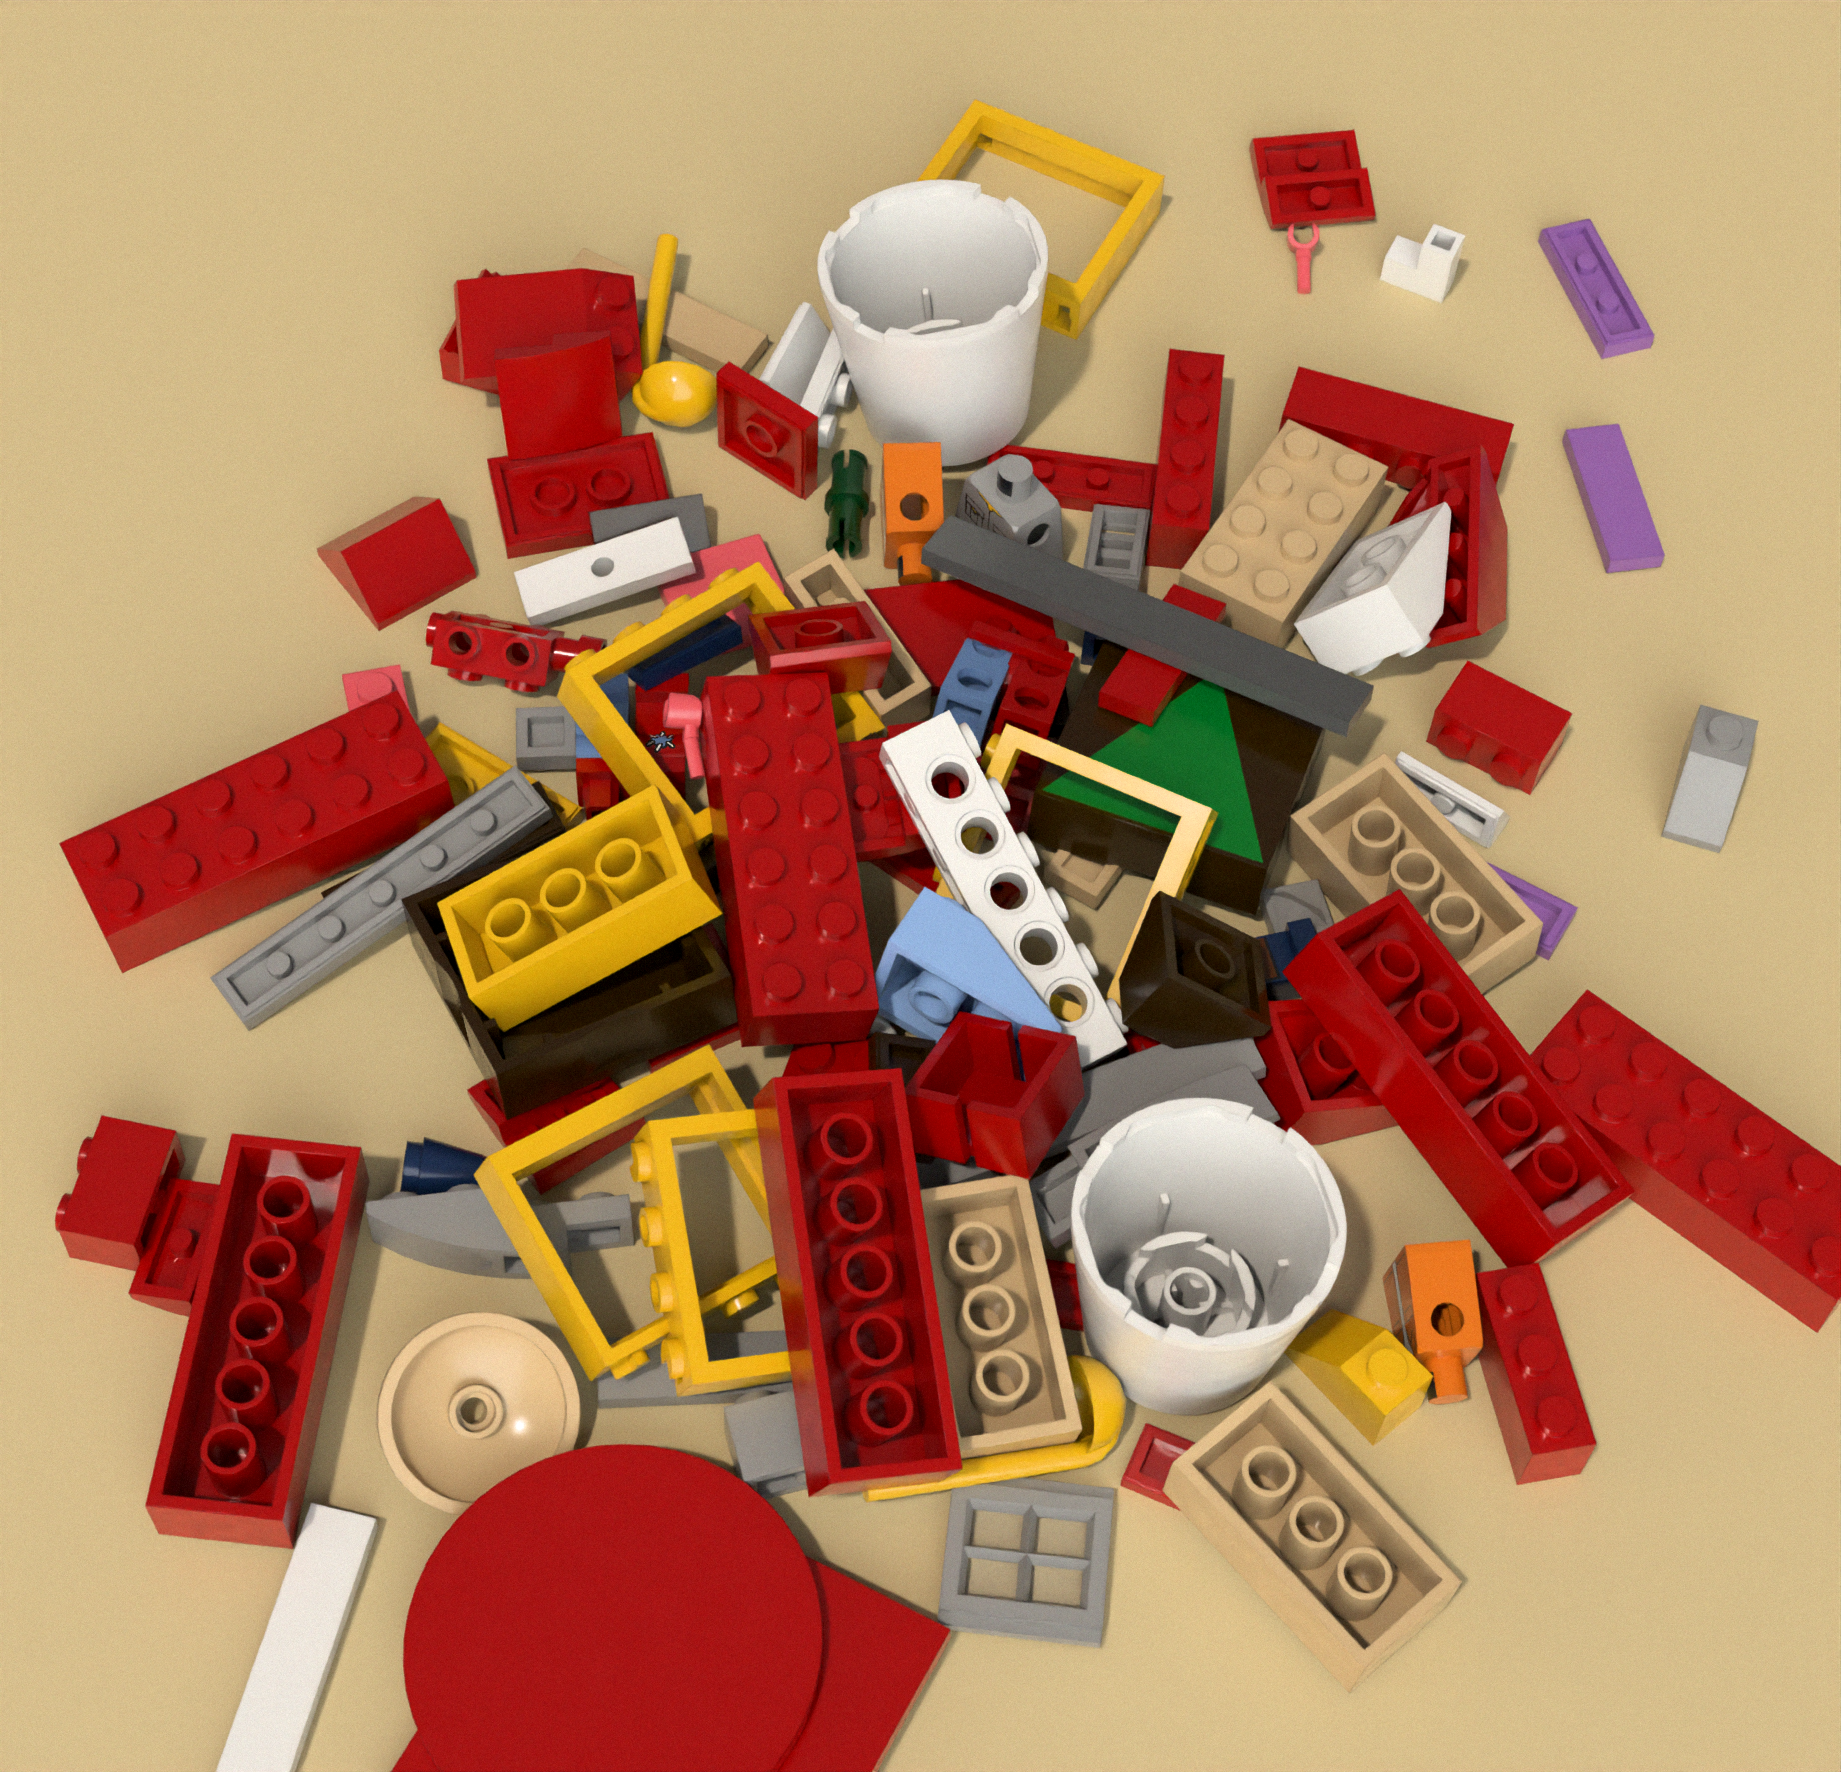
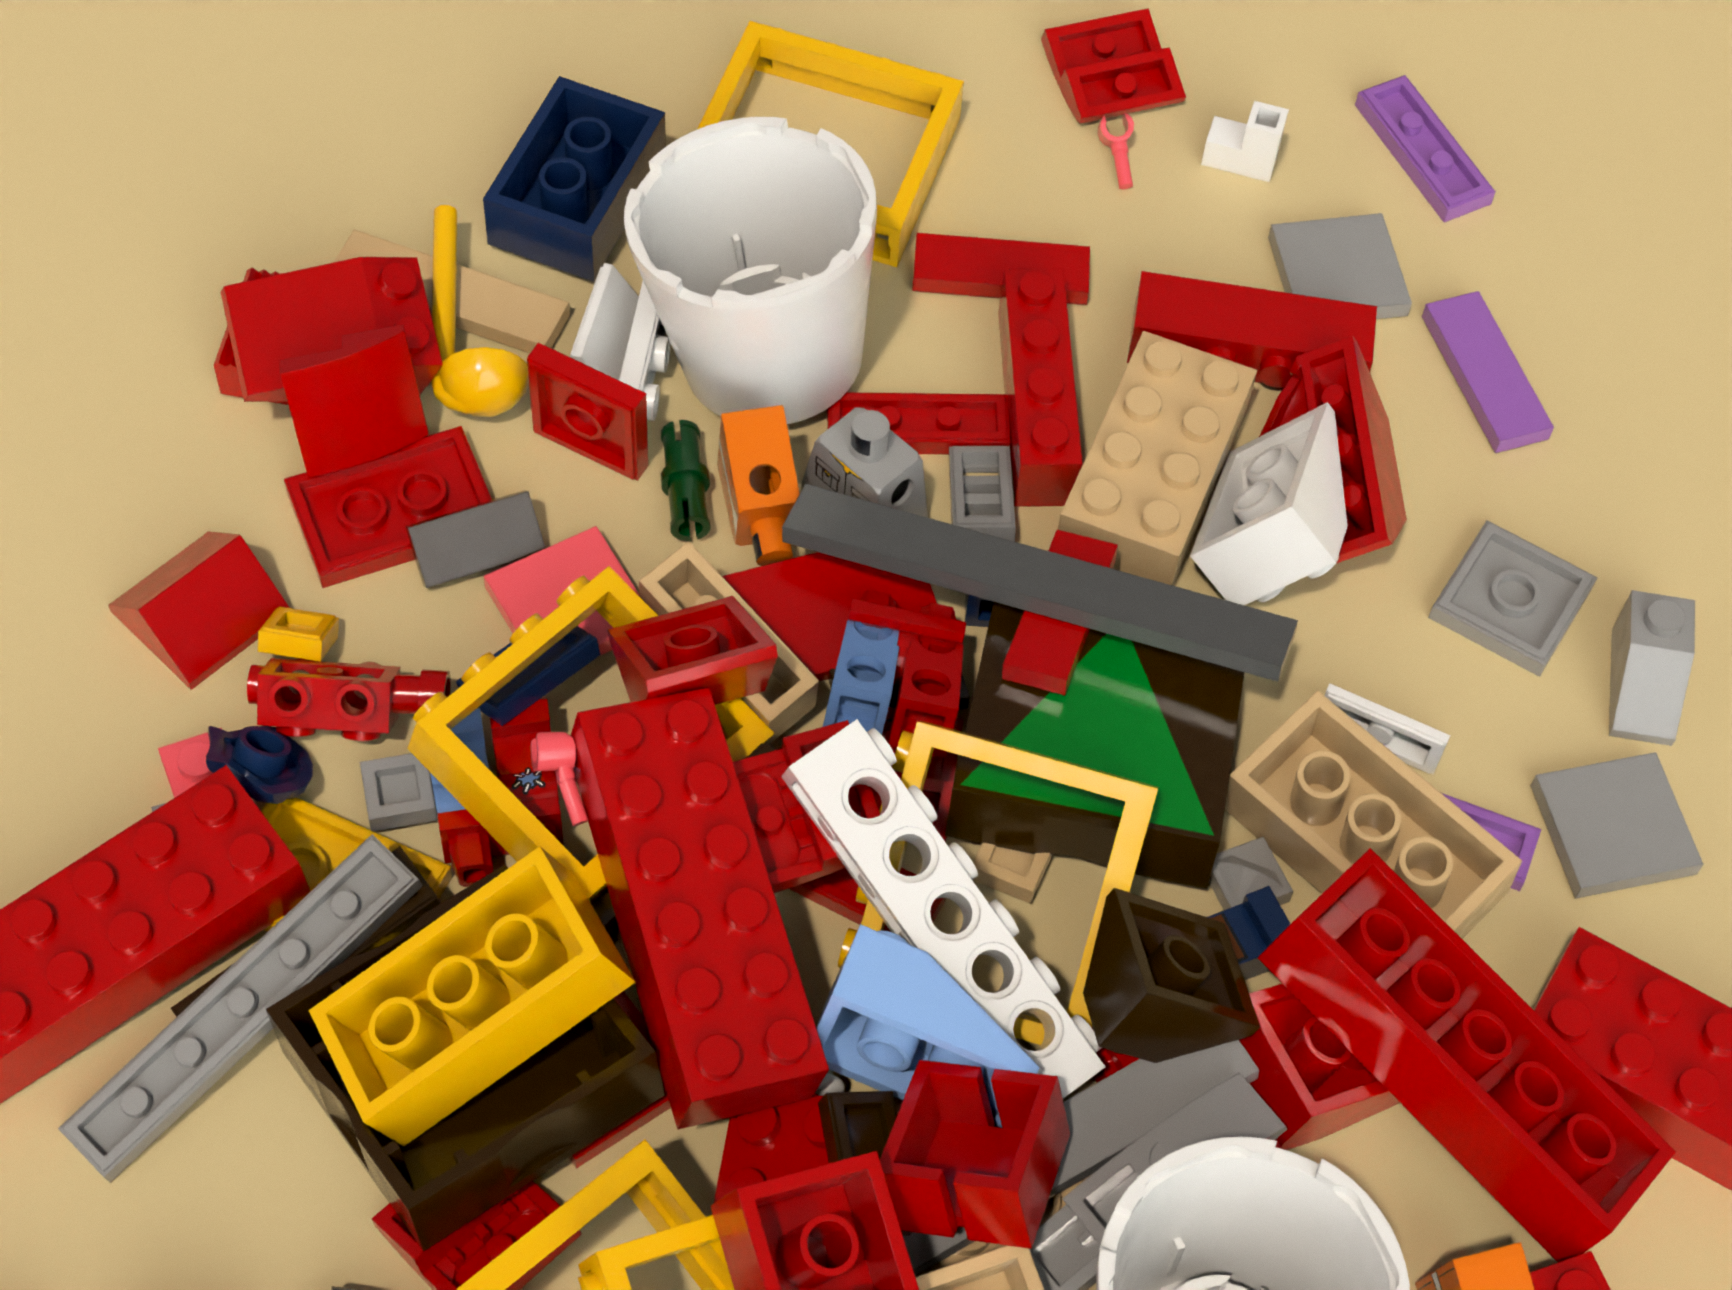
camera: 10 degrees left, 0 degrees up
(431, 696) = (262, 760): none -> dark blue animal
(479, 593) = (298, 634): none -> yellow tile
(604, 572) = (404, 604): white tile -> none
(776, 221) = (571, 178): none -> dark blue brick
(1144, 347) = (977, 264): none -> red tile
(1495, 382) = (1342, 262): none -> light grey tile
(1498, 727) = (1422, 641): red brick -> none
(1609, 701) = (1512, 598): none -> light grey tile
(1649, 913) = (1616, 825): none -> light grey tile

